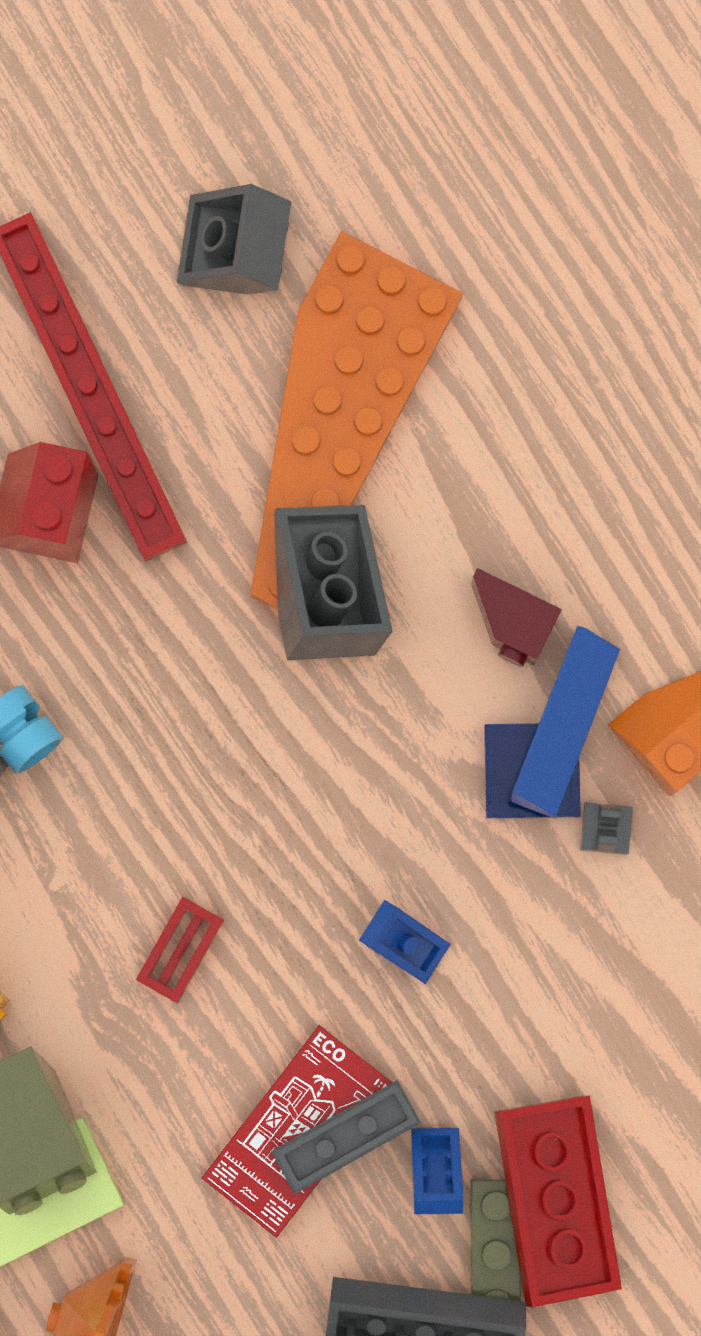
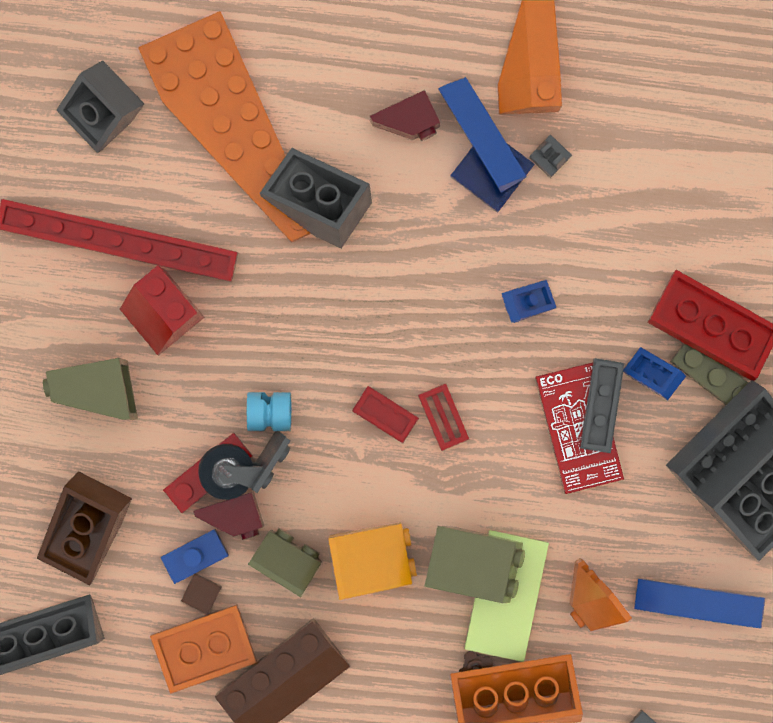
camera: 55 degrees left, 5 degrees up
(127, 875) = (385, 414): none -> red plate

